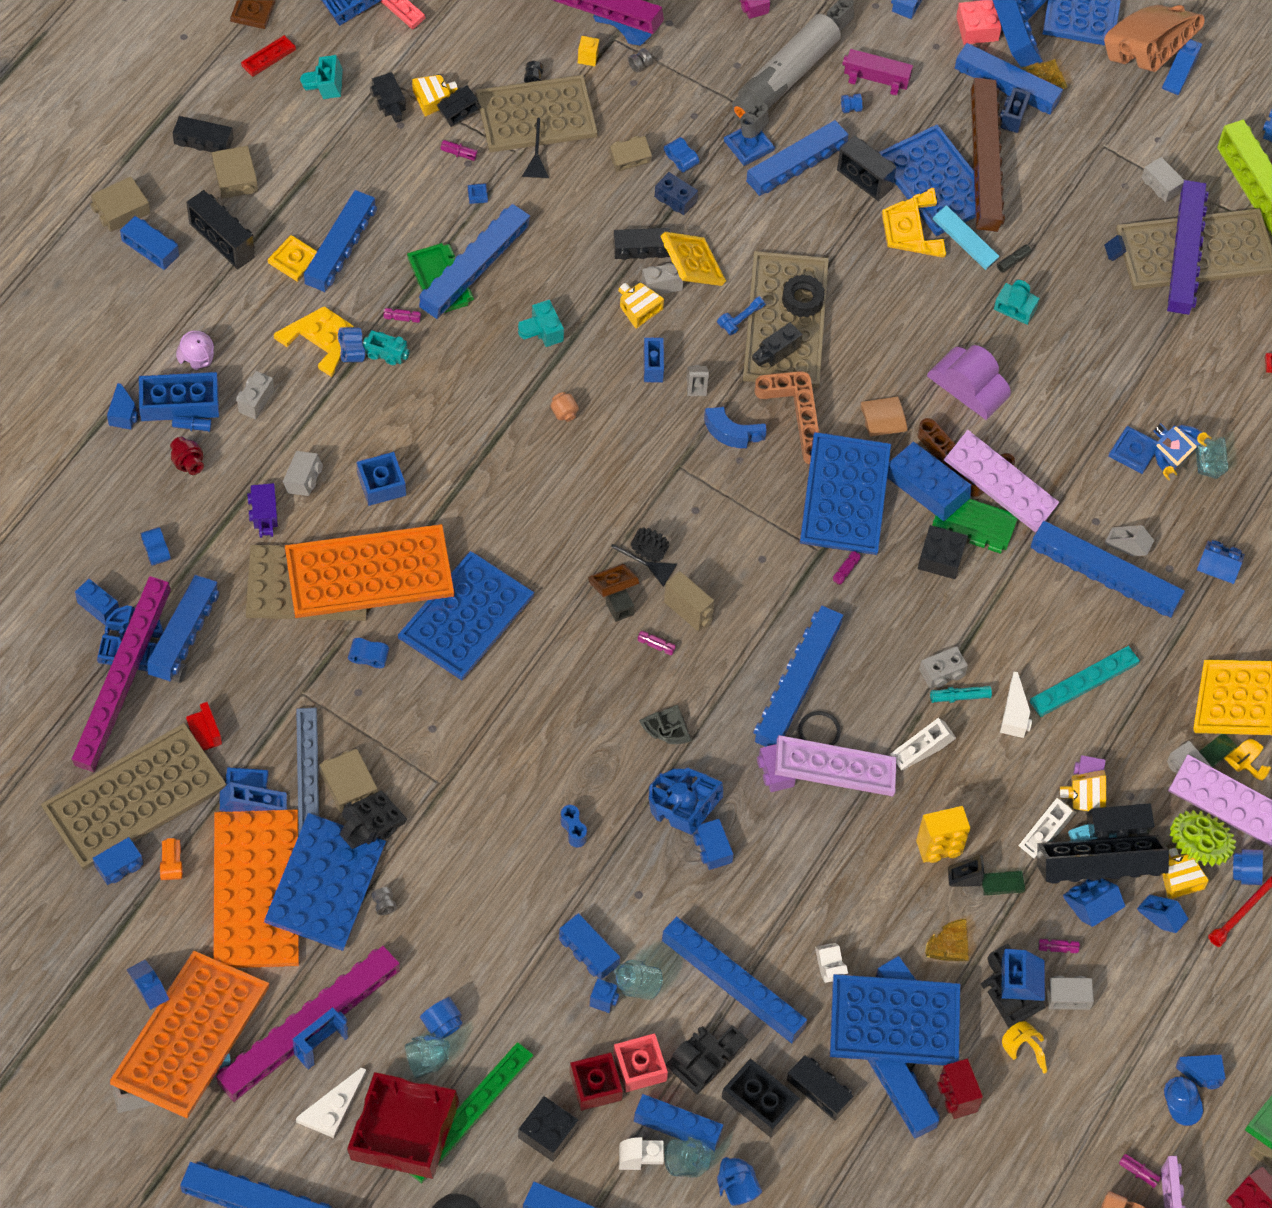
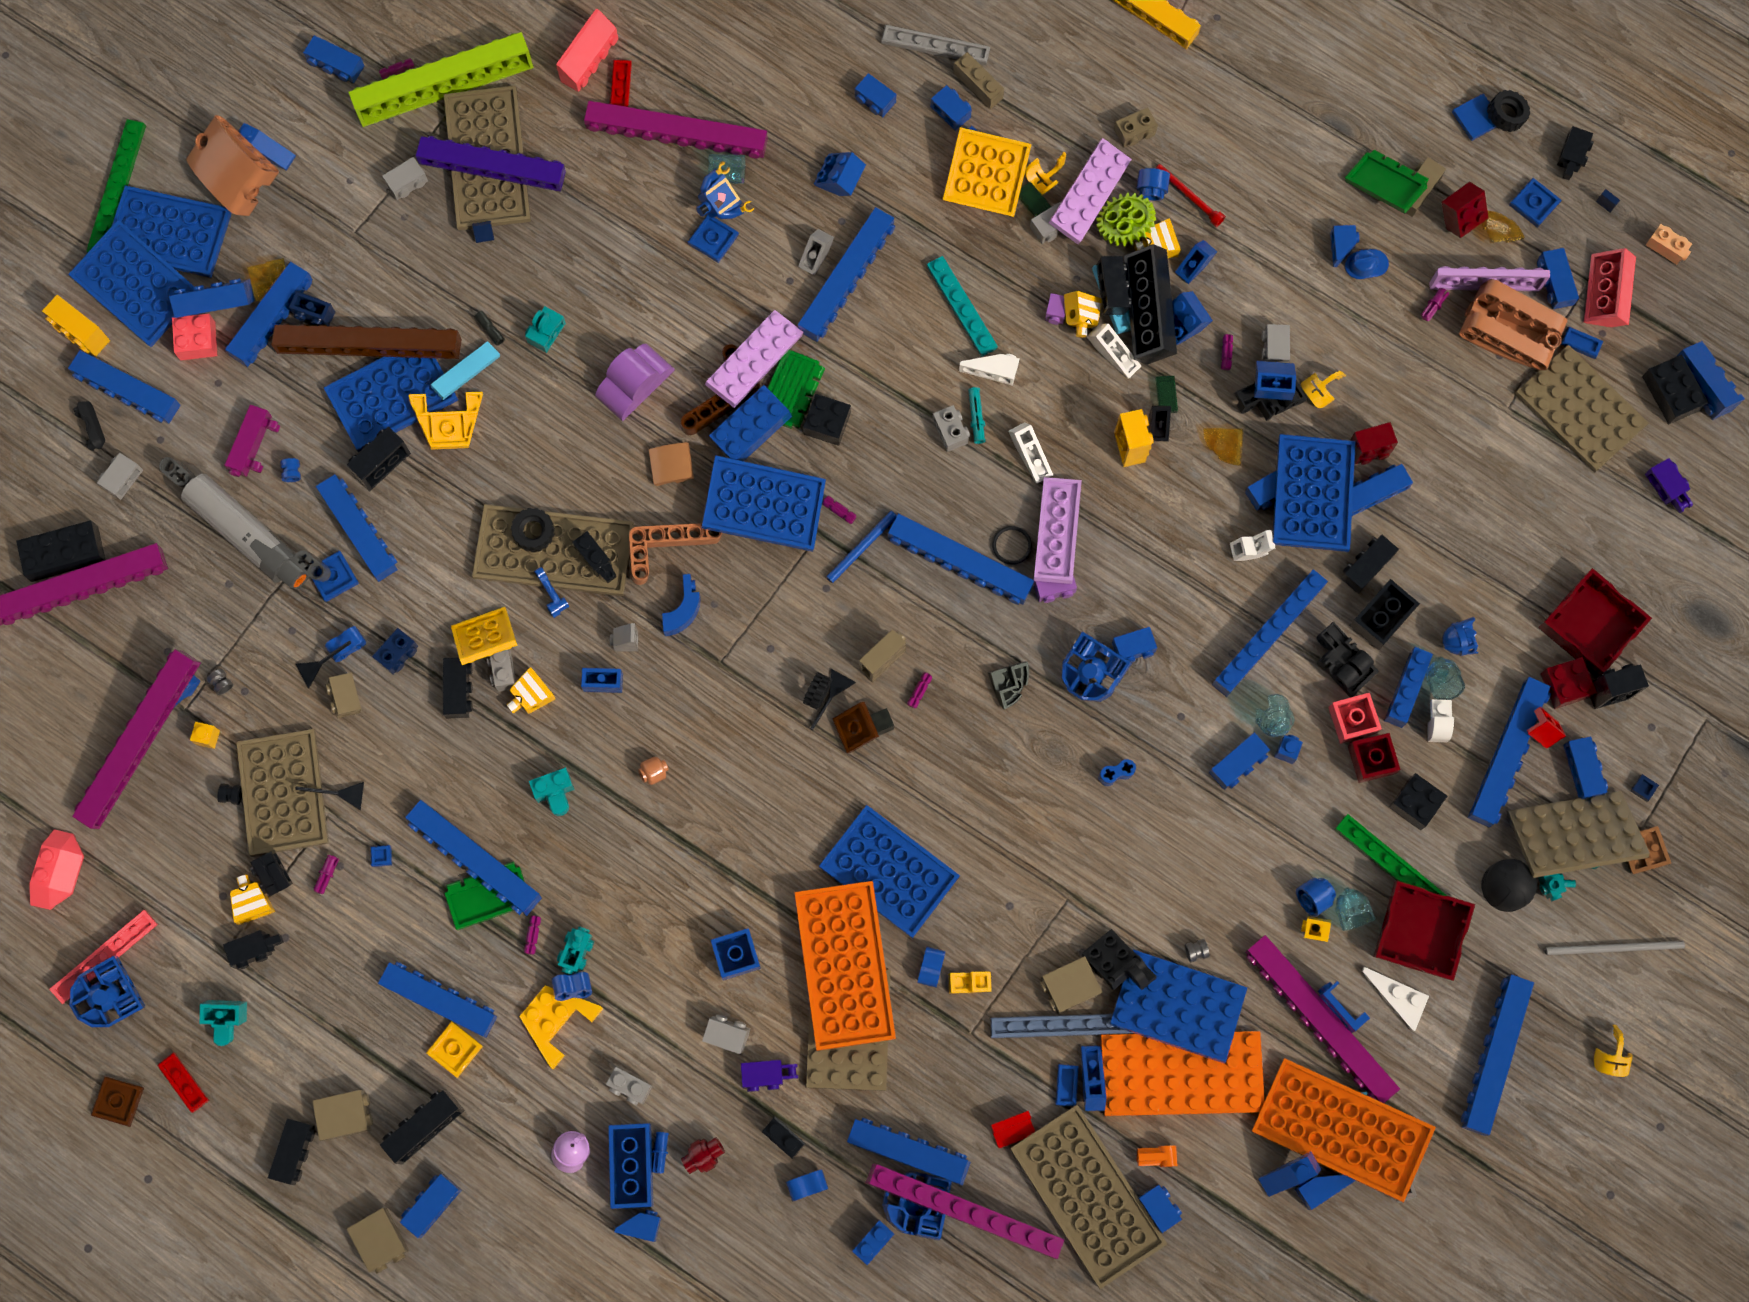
camera: 85 degrees left, 15 degrees up
(129, 1013) = (1319, 1189): none -> blue slope
(201, 524) = (783, 1137): none -> black brick
(352, 689) = (969, 982): none -> yellow slope
(406, 1021) = (1321, 934): none -> yellow brick
(656, 129) = (309, 670): none -> black piece
(805, 586) = (861, 547): none -> blue piece
(1250, 412) = (676, 129): none -> magenta brick

